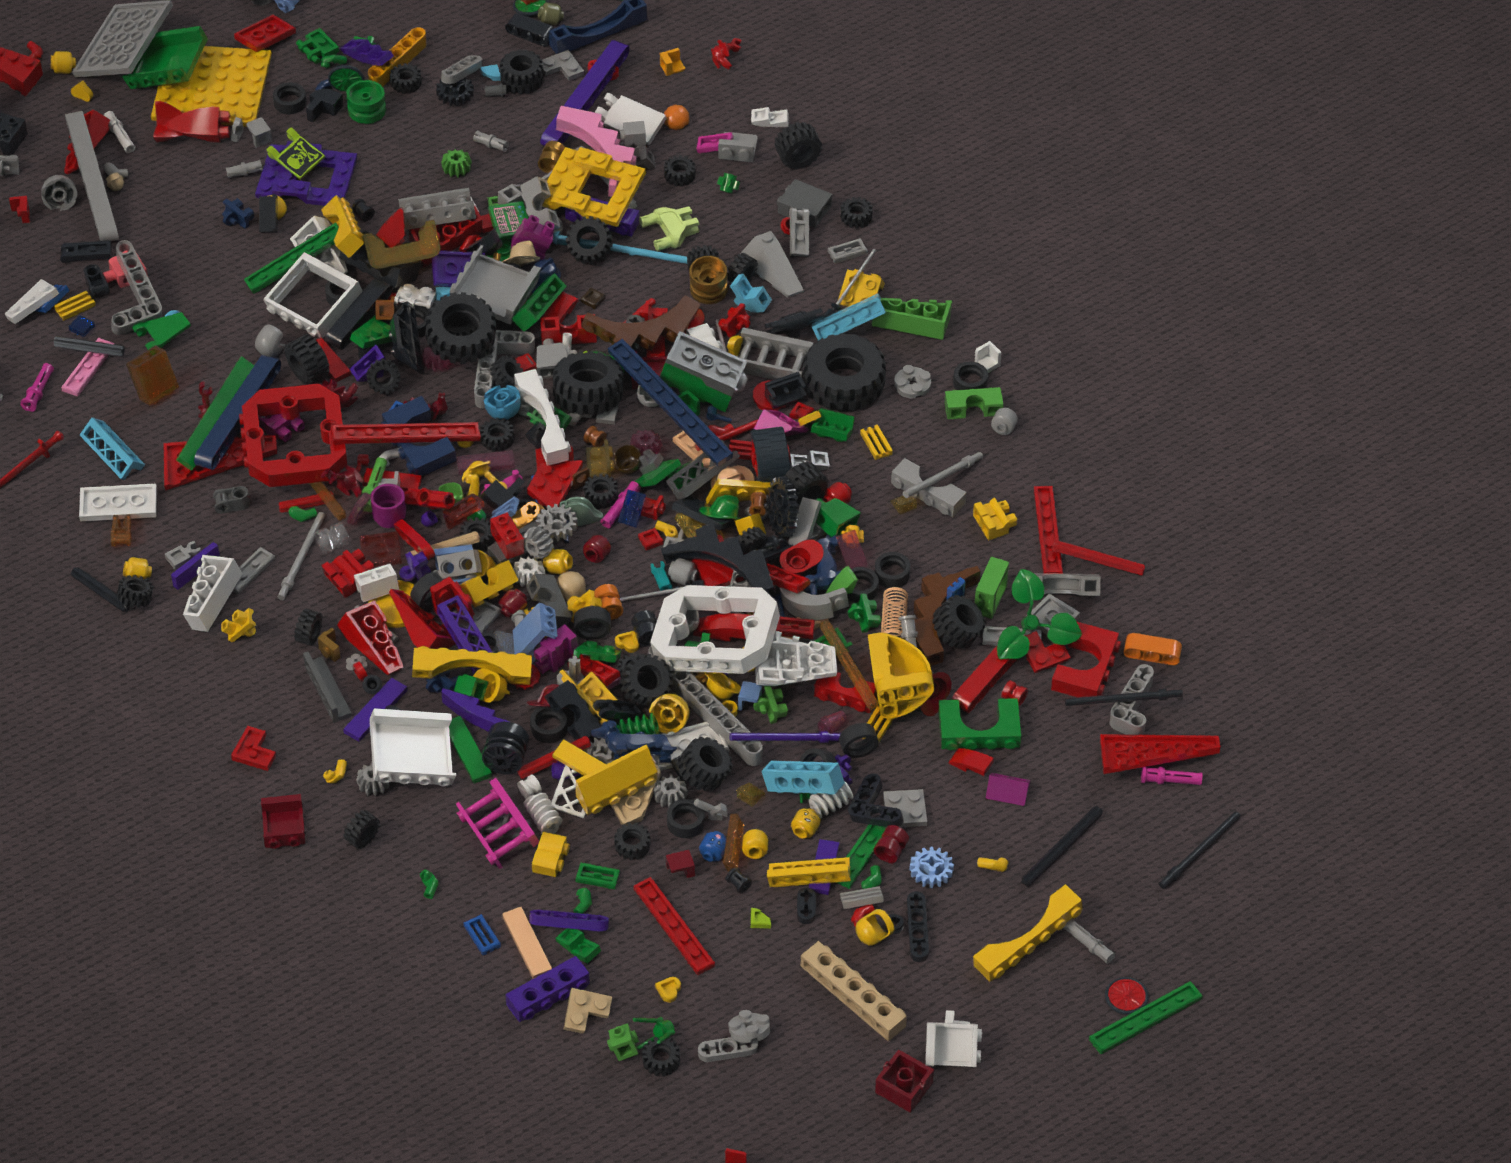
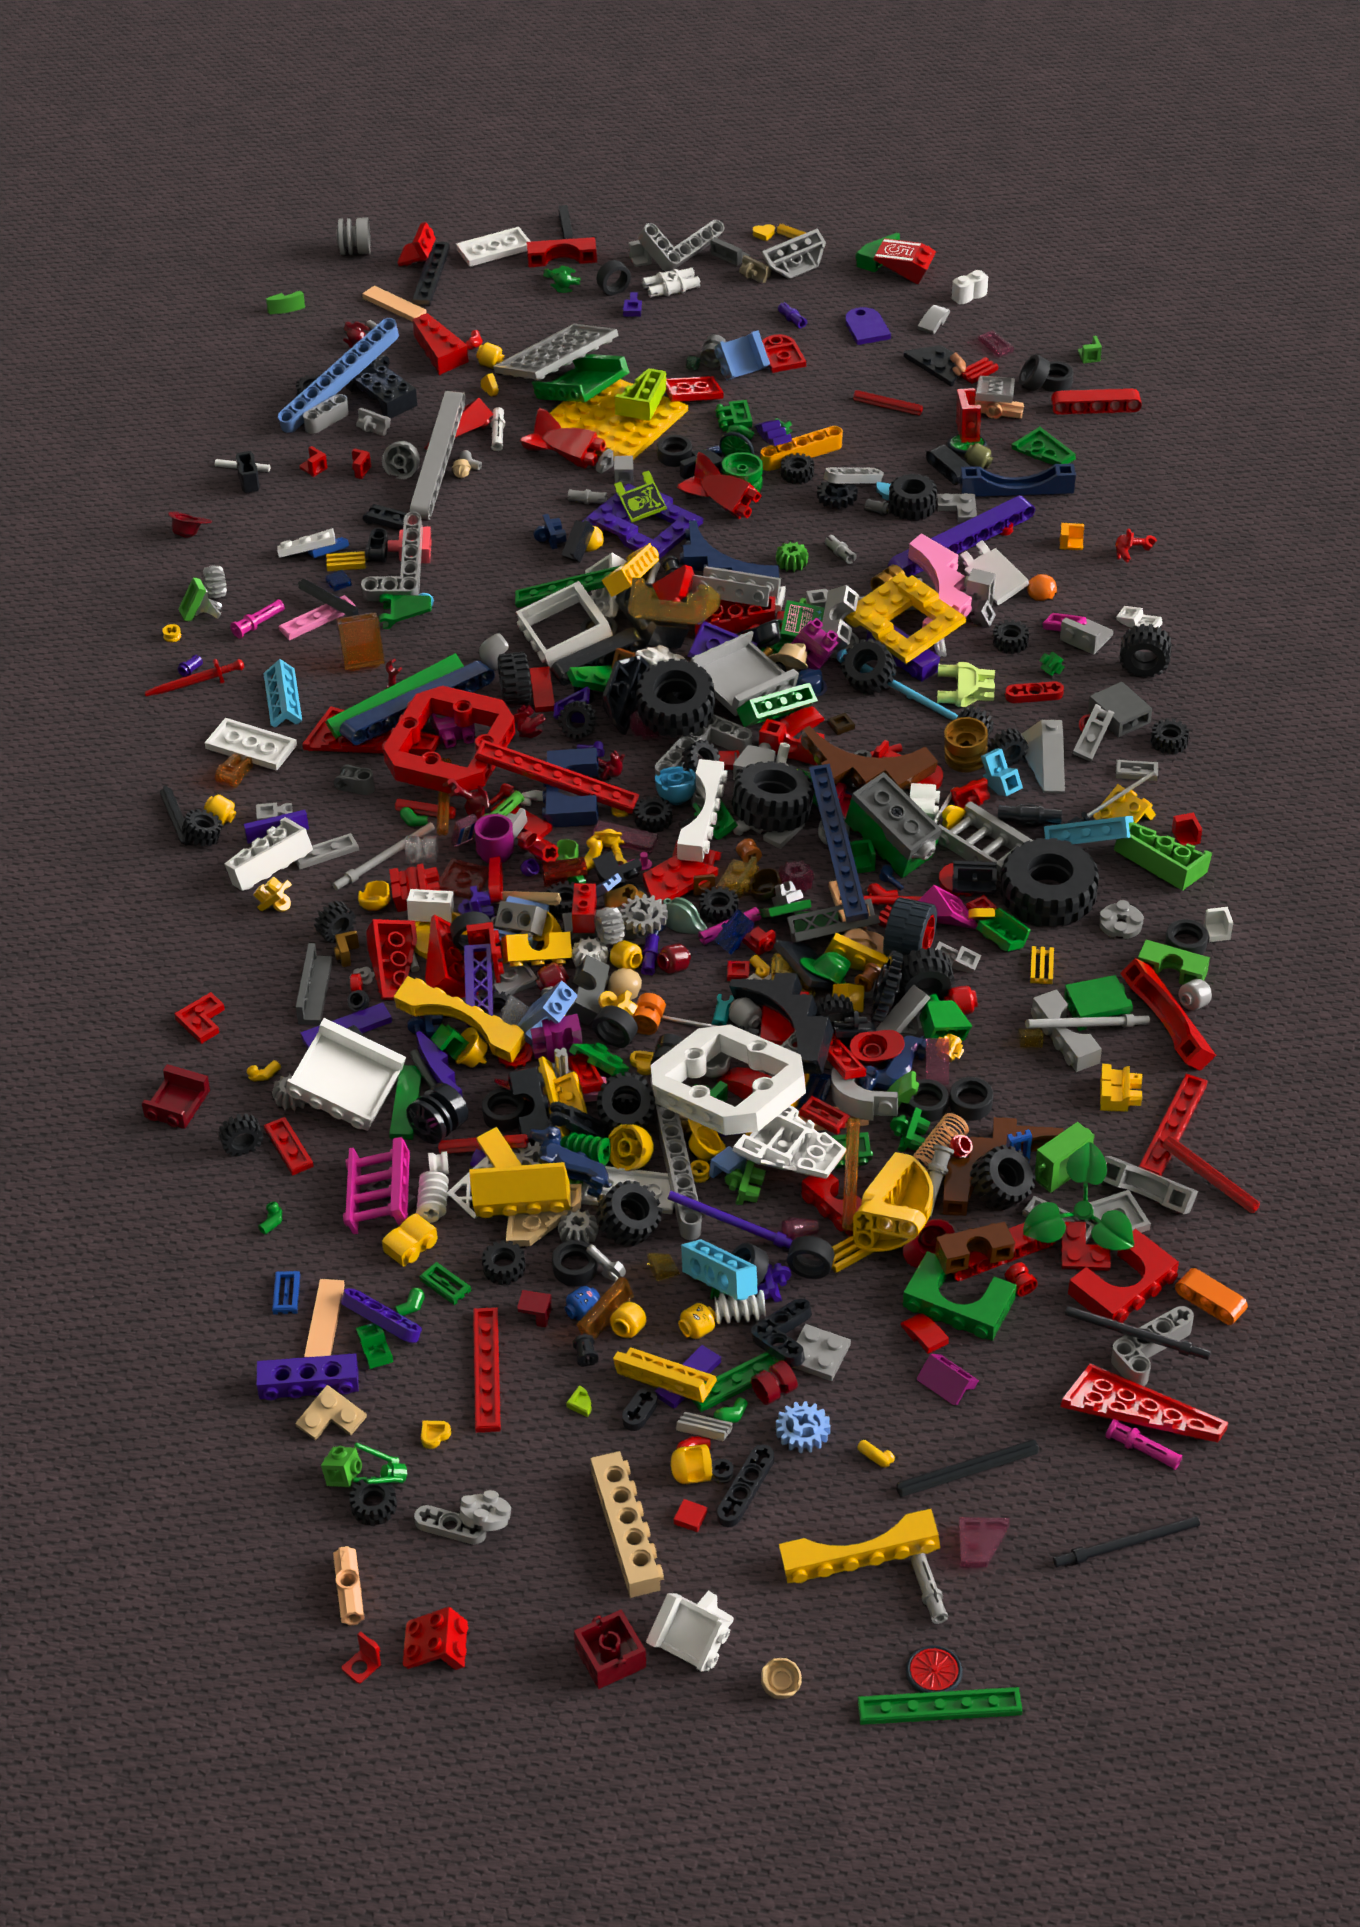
camera: 30 degrees right, 5 degrees down
(9, 456) = (186, 668): none -> dark purple pin
(234, 57) = (643, 396): none -> lime wedge
(247, 6) = (693, 362): none -> clear green hinge
(322, 592) = (375, 896): none -> yellow hair
(365, 122) = (727, 491): none -> red hips
(380, 190) = (700, 553): none -> dark blue arch
(400, 822) = (288, 1146): none -> red tile
(409, 394) = (599, 745): none -> dark purple hand
(468, 720) = (422, 1067): none -> pearl dark grey bar
(575, 552) = (650, 954): none -> dark purple pin
(680, 1115) = (349, 1596): none -> light nougat piece
(732, 207) = (1048, 695): none -> red beam
(775, 1131) = (435, 1637): none -> red bracket
(893, 965) = (690, 1515): none -> red tile
(914, 608) = (961, 1145): none -> red plate
(917, 287) = (1187, 829): none -> red panel
(937, 453) = (1097, 998): none -> green panel
(962, 690) = (991, 1240): none -> reddish brown arch
(995, 443) = (1185, 1036): none -> red arch
(1032, 1047) = (781, 1678): none -> tan hair
(1102, 892) = (980, 1539): none -> clear pink wing

